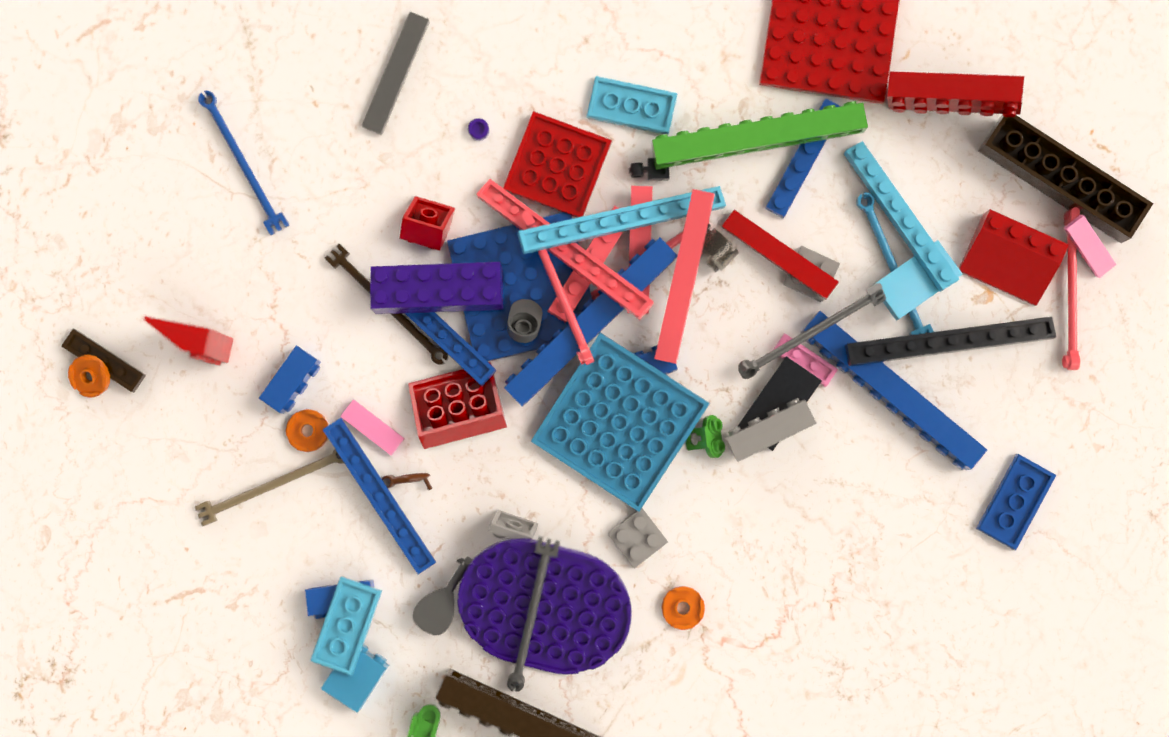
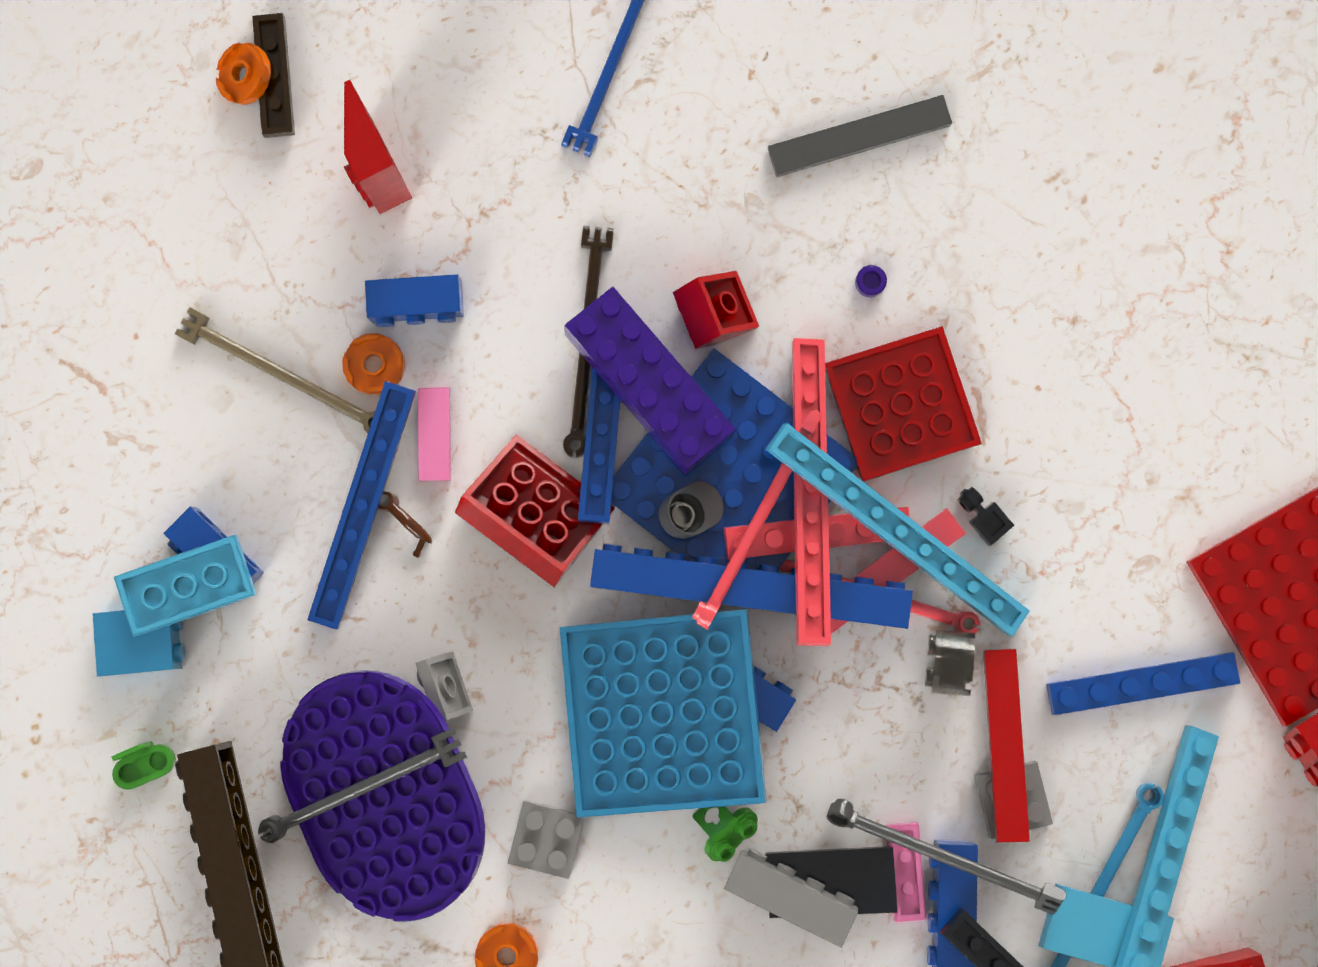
camera: 50 degrees right, 0 degrees up
(436, 610) = (282, 673): dark grey piece -> none
(631, 105) = (1041, 434): medium azure tile -> none
(684, 276) = (890, 655): coral tile -> none
(759, 135) = (1127, 611): bright green brick -> none

